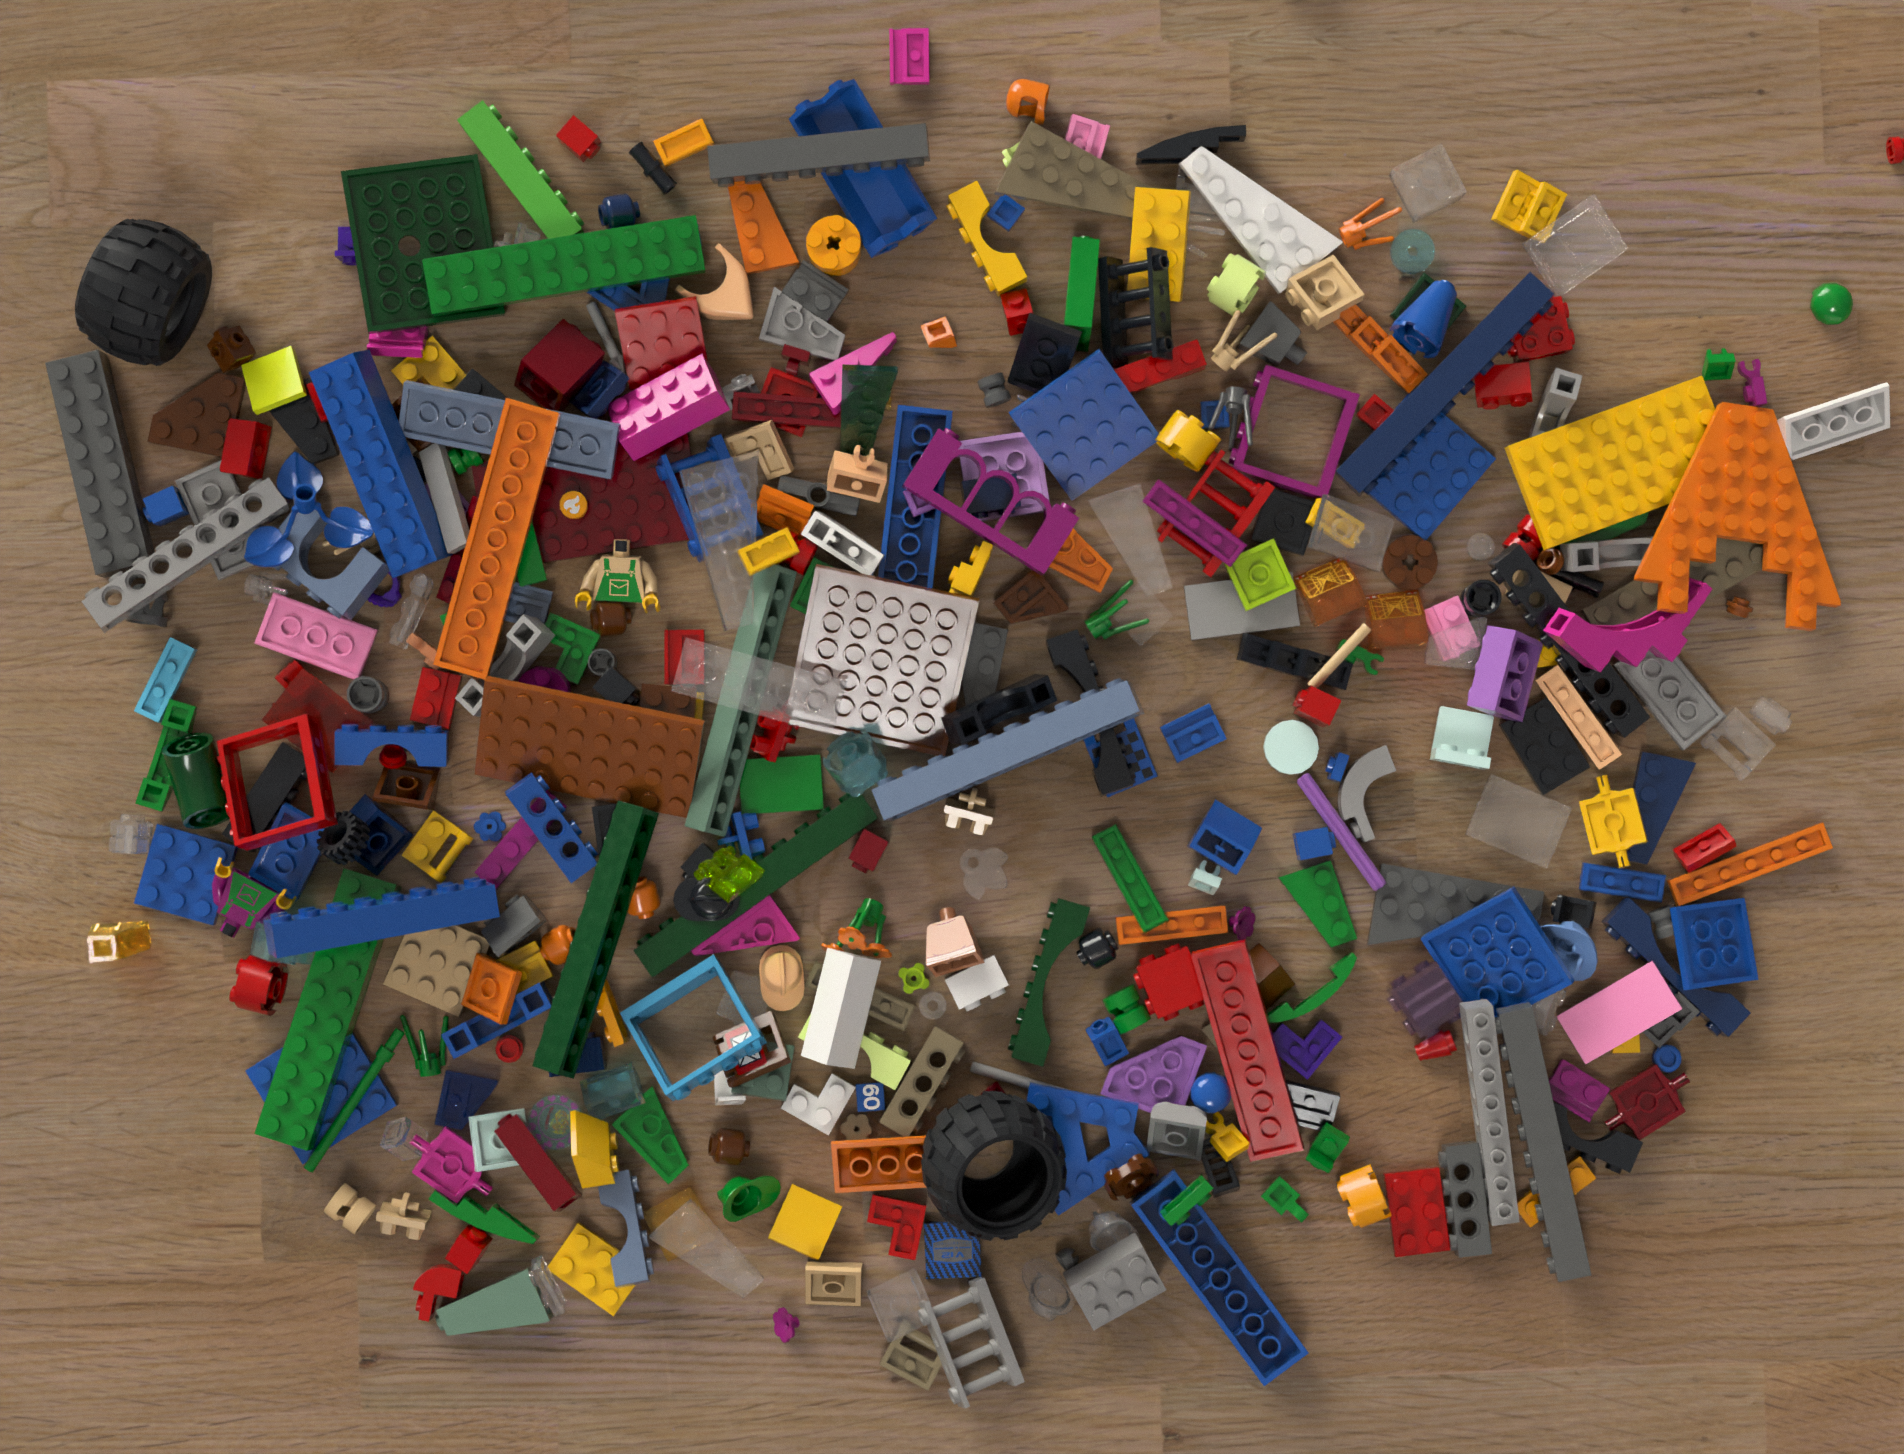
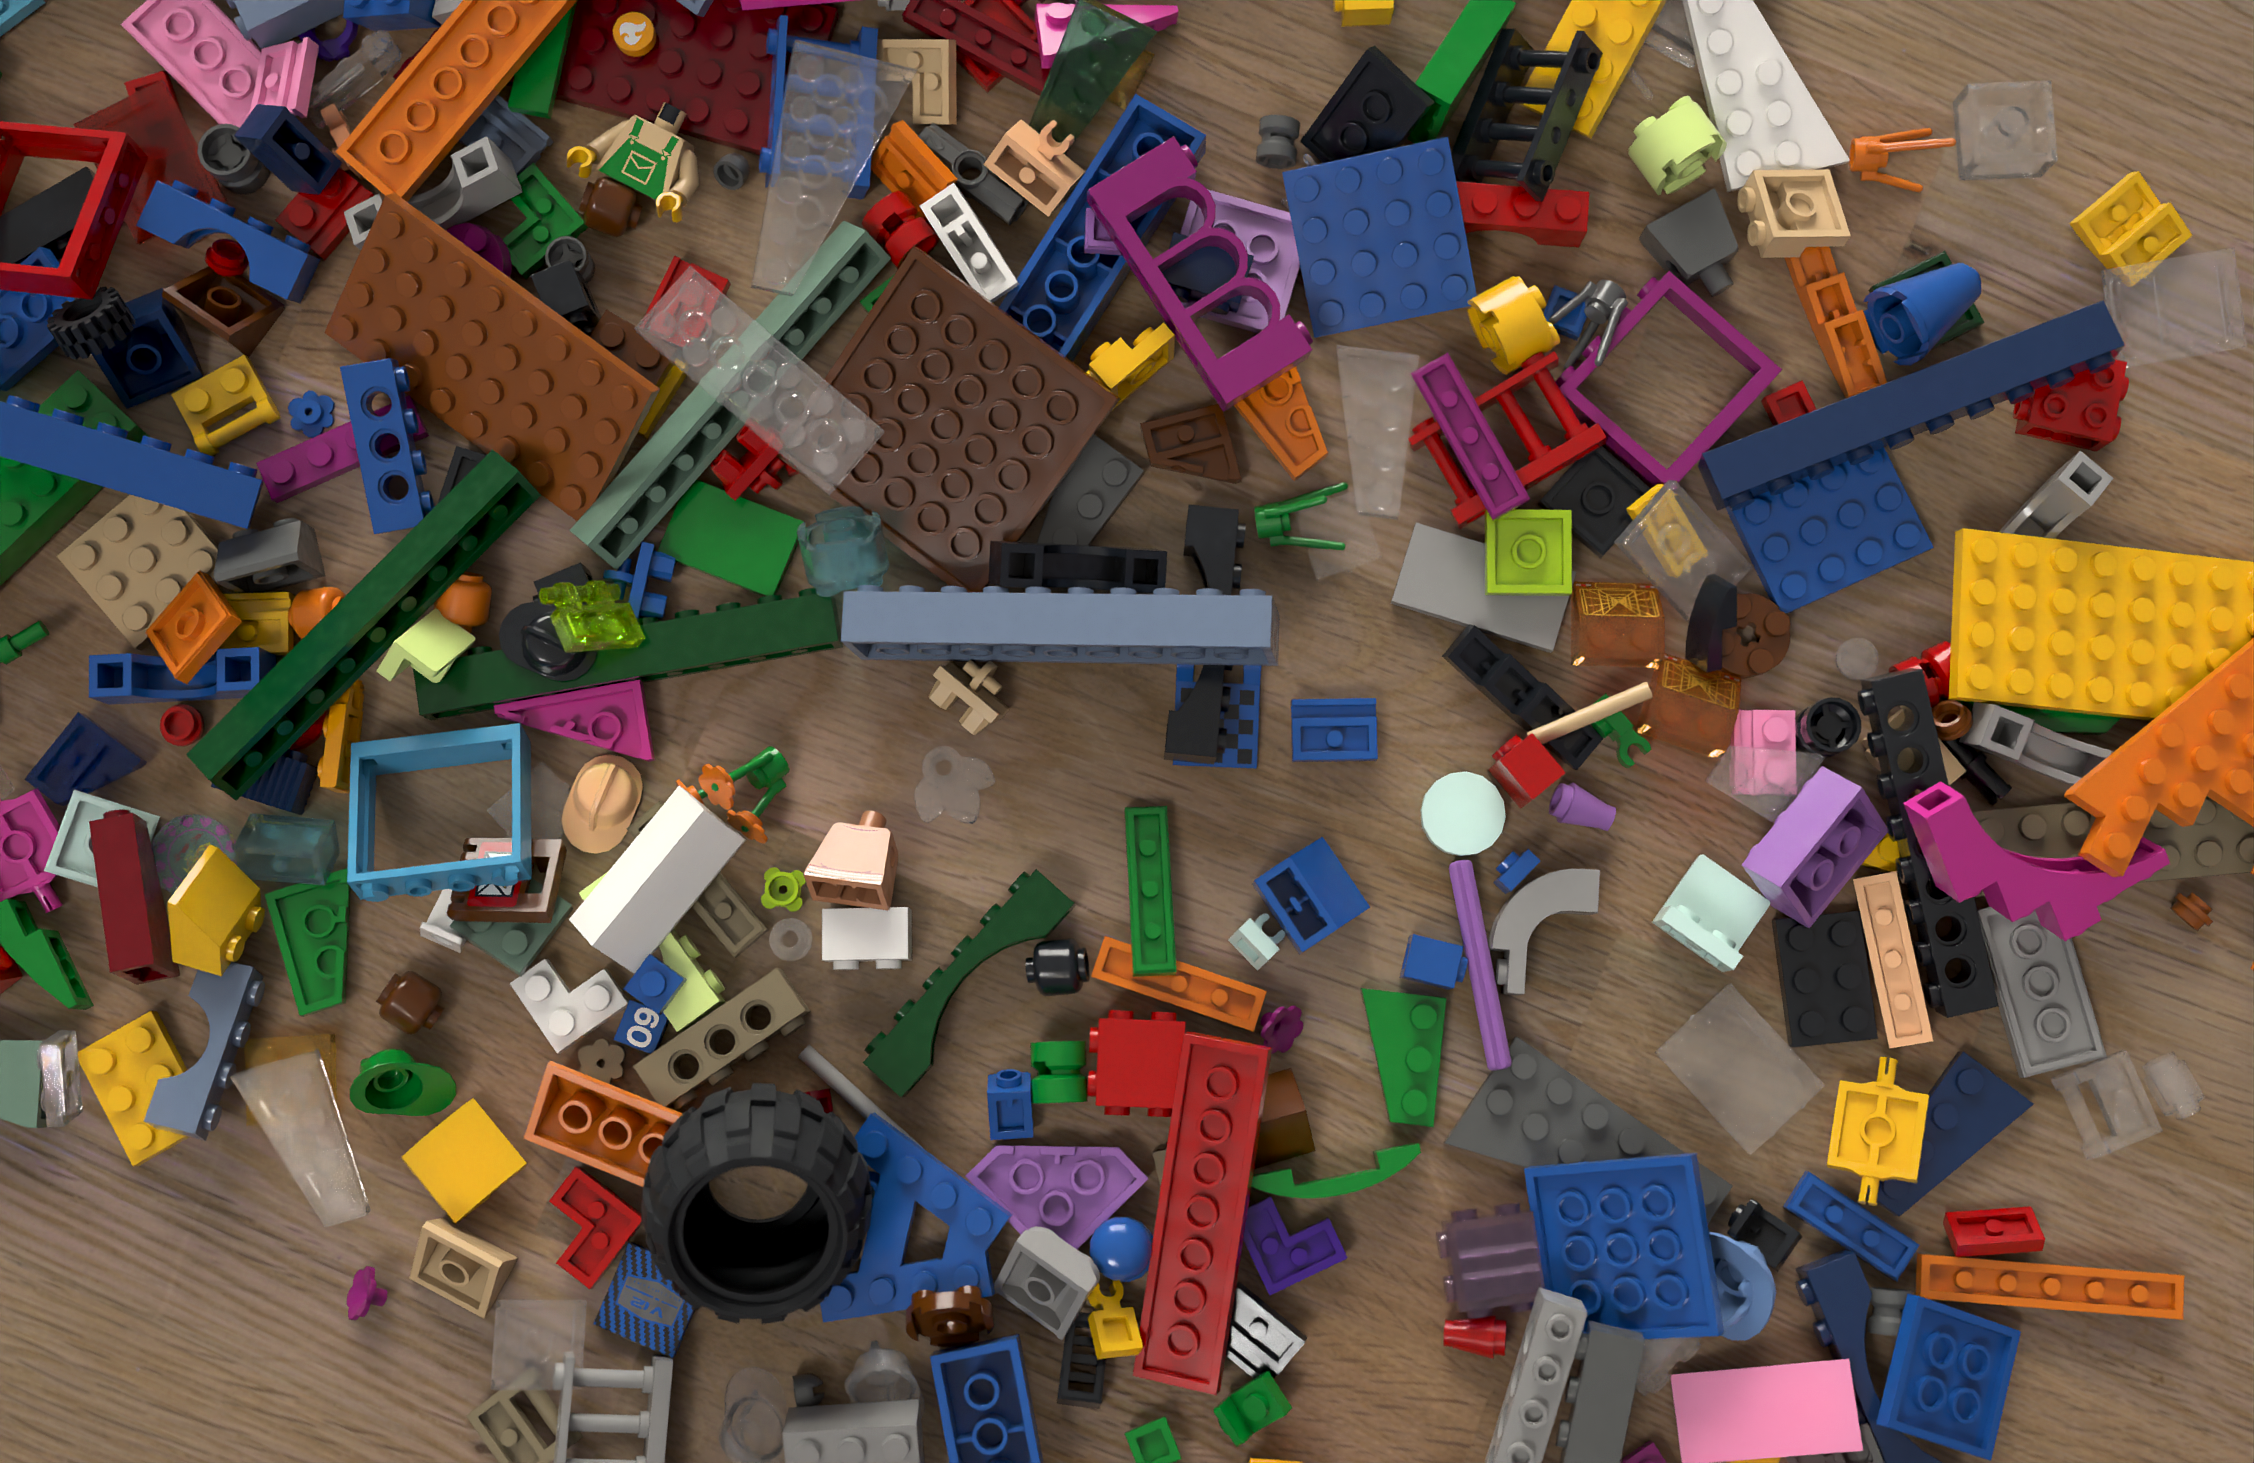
camera: 25 degrees right, 5 degrees down
(377, 635) = (286, 76): none -> bright pink plate
(403, 675) = (288, 149): none -> dark blue brick
(427, 1062) = (60, 691): green plant -> none
(640, 936) = (427, 648): none -> yellowish green panel
(672, 560) = (732, 171): none -> dark grey hinge
(768, 551) = (862, 206): yellow plate -> none
(868, 851) = (802, 680): dark red brick -> none
(869, 1069) = (655, 984): none -> blue plate
(939, 334) = (1238, 37): orange slope -> none
(1016, 310) = (1354, 43): red bracket -> none
(1179, 1207) = (992, 1393): green plate -> none
(1226, 356) = (1618, 237): tan plant -> none
(1355, 712) = (1578, 807): none -> medium lavender cone
(1383, 563) = (1712, 612): none -> black slope
(1415, 239) = (1950, 202): clear light blue piece -> none
(1504, 386) = (1991, 450): red brick -> none

